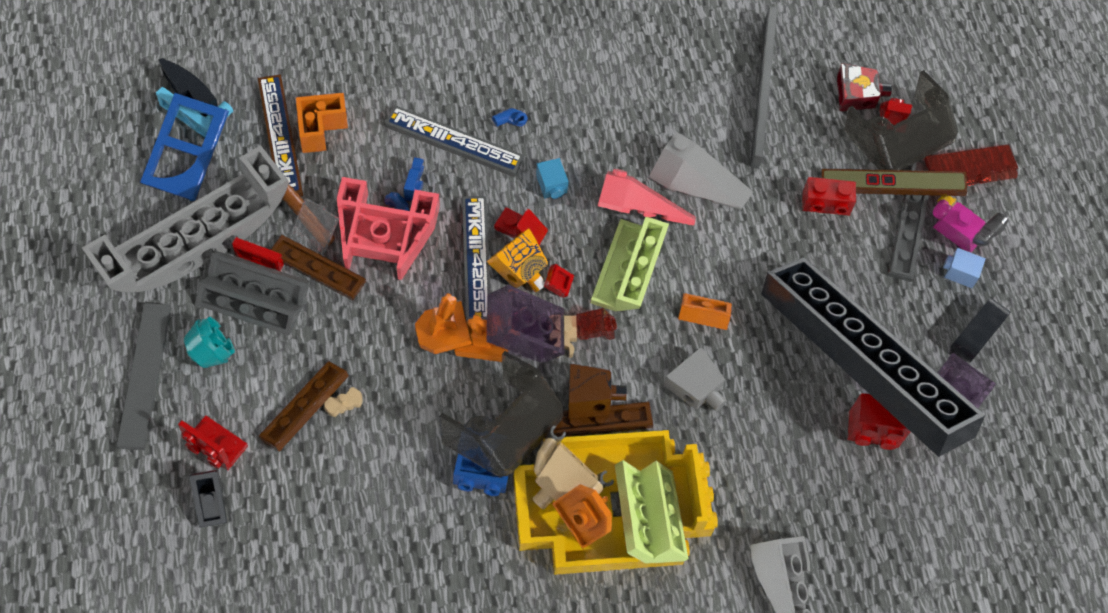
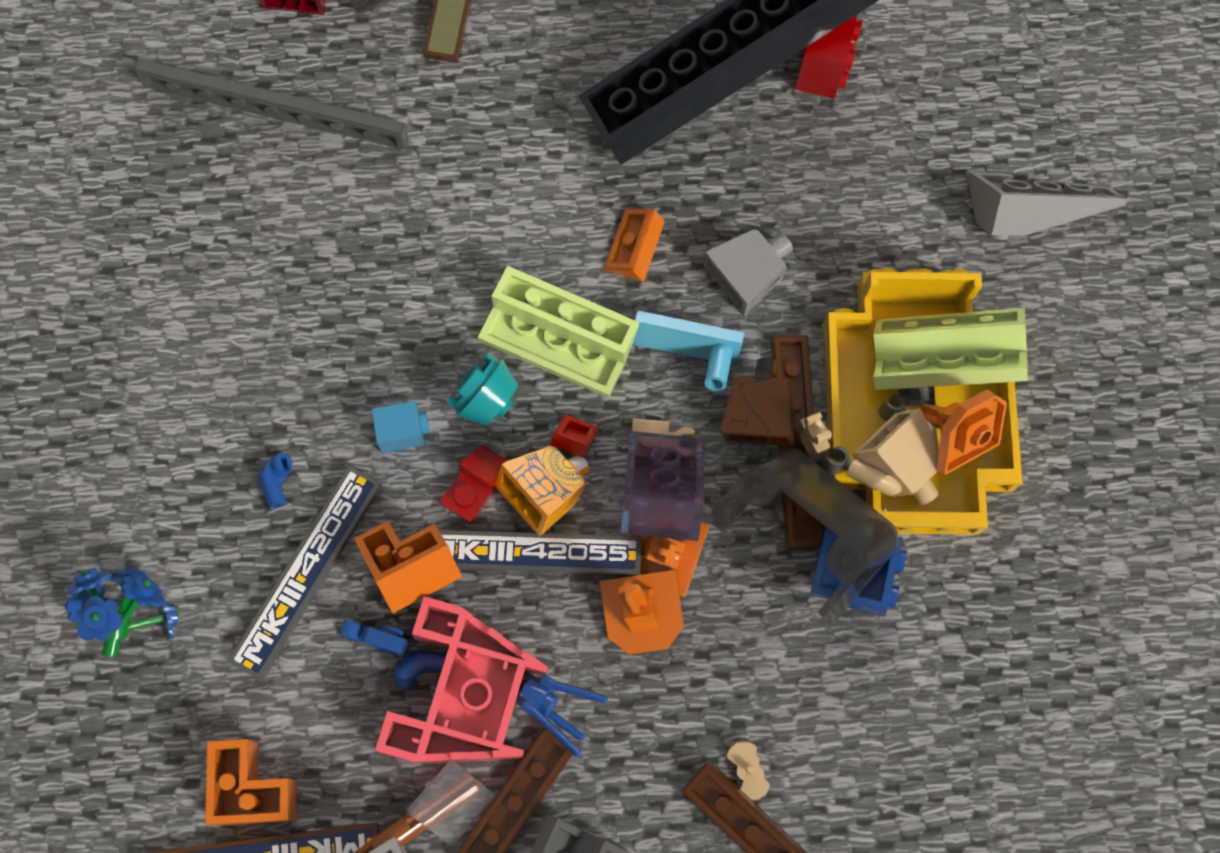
camera: 80 degrees left, 10 degrees up
(381, 271) = (539, 700): none -> blue plant
(418, 28) = (99, 617): none -> blue plant
(458, 184) = (407, 567): none -> orange brick
(574, 422) = (814, 436): none -> tan plate
(580, 220) = (485, 391): none -> teal cone
(595, 324) = (650, 393): clear red bracket -> none
(626, 193) = (451, 316): coral wedge -> none
(636, 358) = (692, 339): none -> medium azure piece
(693, 171) = (411, 223): light grey wedge -> none
(829, 196) = (474, 50): red brick -> none

